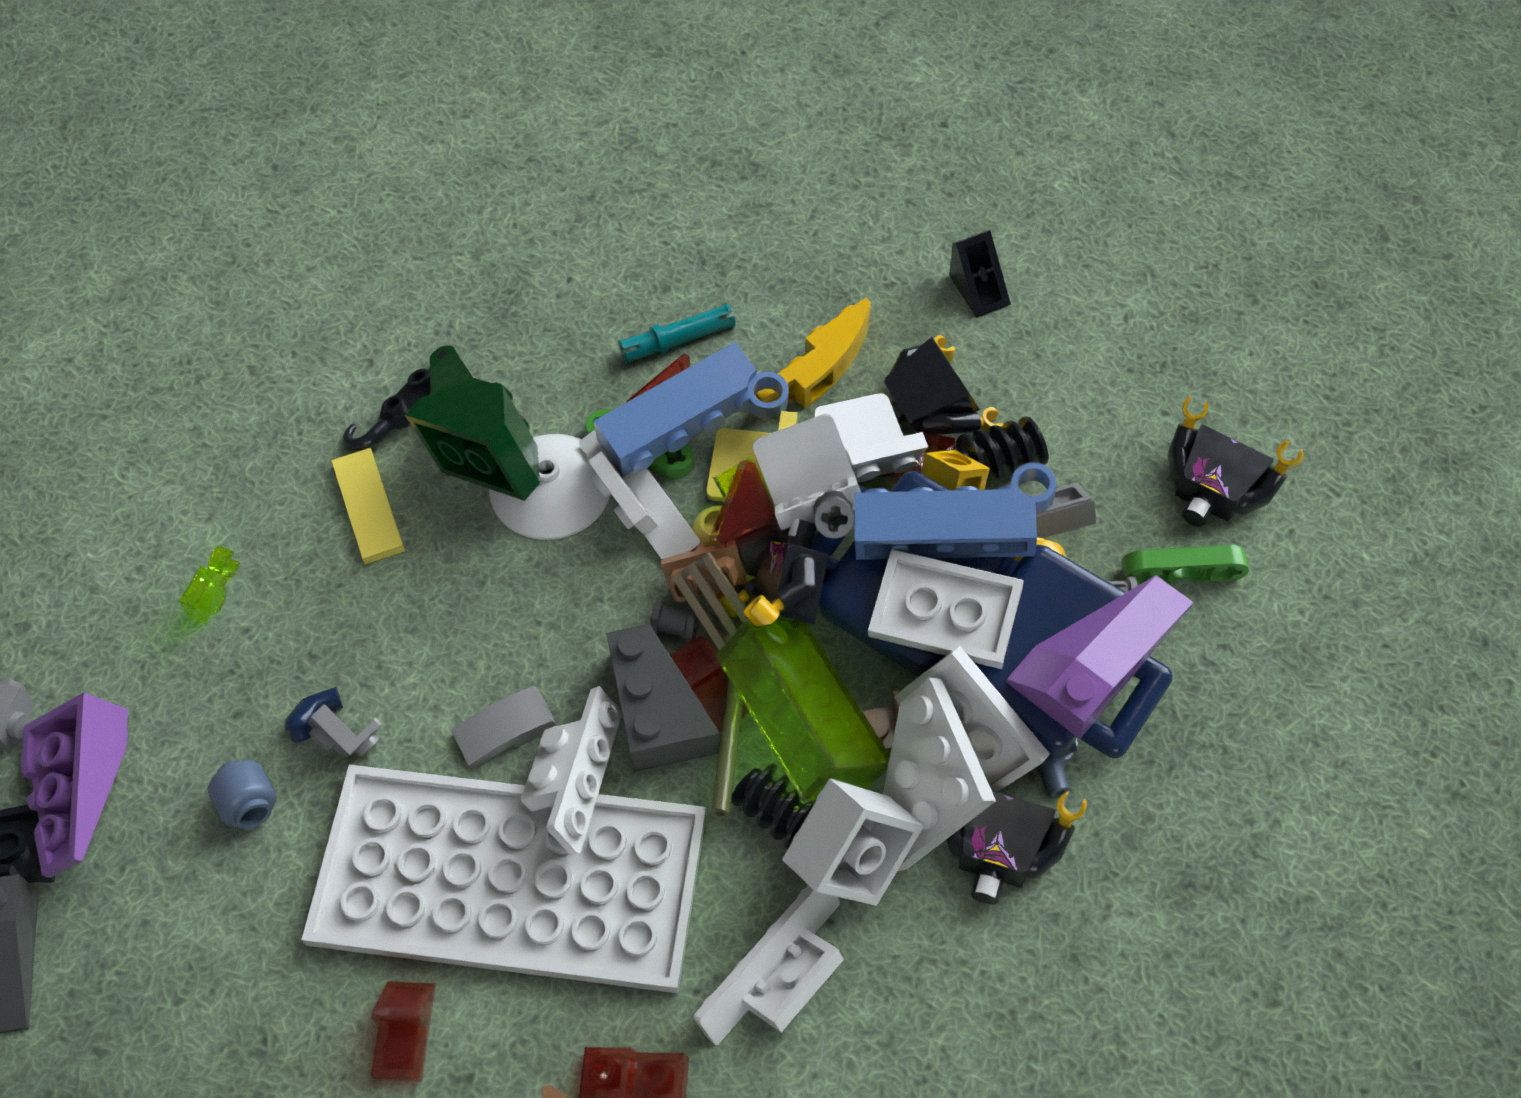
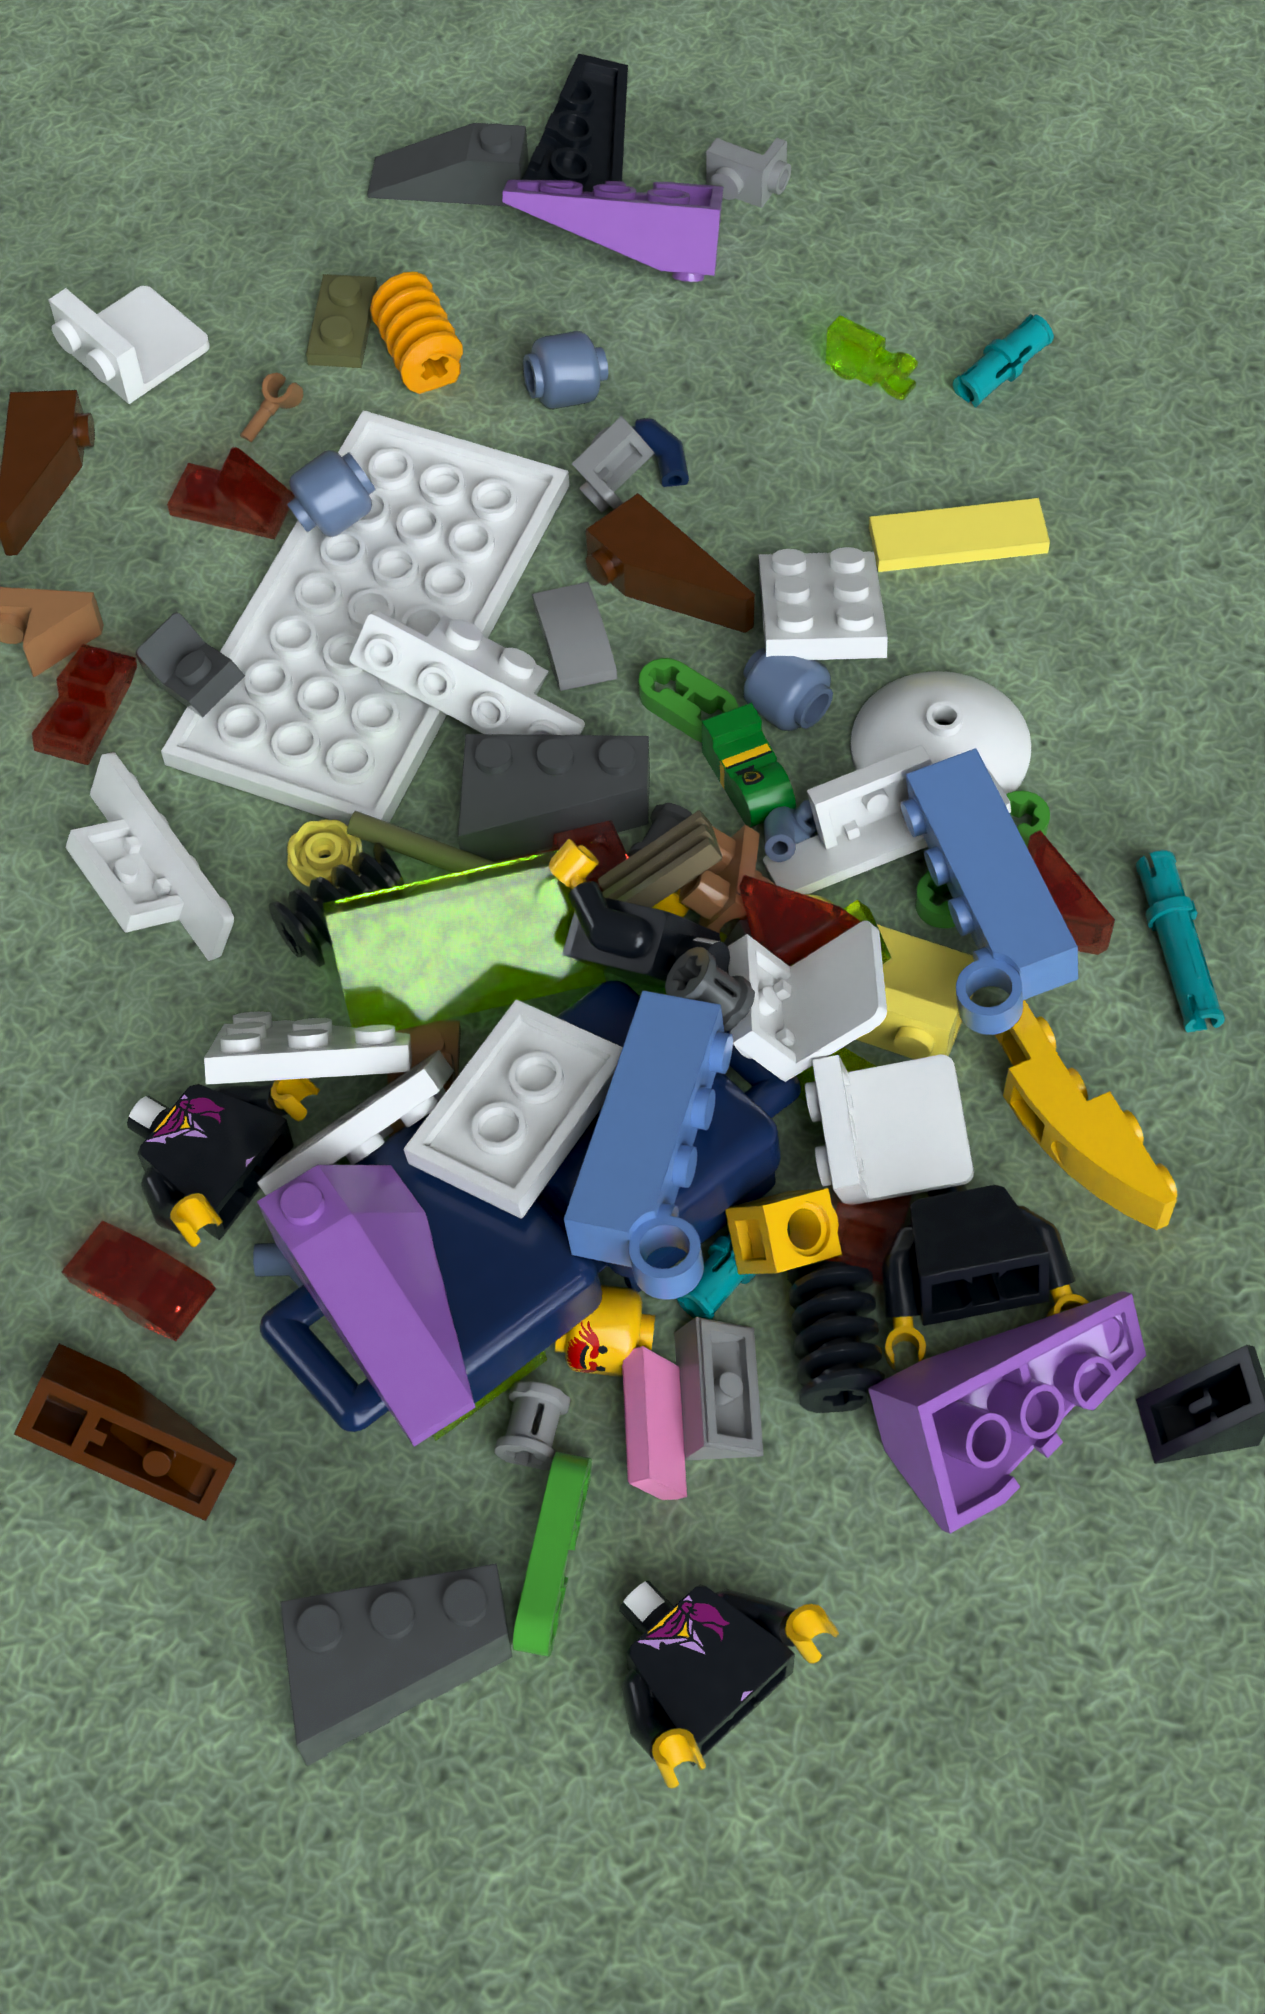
camera: 105 degrees right, 0 degrees up
(187, 1000) = (341, 321): none -> olive plate
(200, 503) = (1003, 359): none -> teal pin
(206, 922) = (417, 332): none -> light orange piece
(295, 1028) = (271, 403): none -> medium nougat hand
(412, 920) = (330, 493): none -> sand blue head
(427, 686) = (664, 567): none -> reddish brown slope
(458, 563) = (822, 605): none -> white plate
(463, 425) = (1014, 615): dark green slope -> none
(530, 572) = (787, 689): none -> sand blue head
(554, 644) = (692, 695): none -> bright green beam
(599, 985) = (187, 665): none -> dark grey slope
(601, 585) = (746, 764): none -> green leg
(645, 553) = (786, 828): none -> sand blue arm
(732, 829) = (316, 840): none -> light yellow plate
(852, 842) = (242, 940): white brick -> none
(1020, 384) = (980, 1409): none -> medium lavender wedge
(1093, 530) = (654, 1425): none -> bright pink tile
(1103, 859) = (139, 1280): none -> clear red slope
(1214, 830) = (124, 1433): none -> reddish brown slope
(1283, 629) = (386, 1649): none -> dark grey wedge

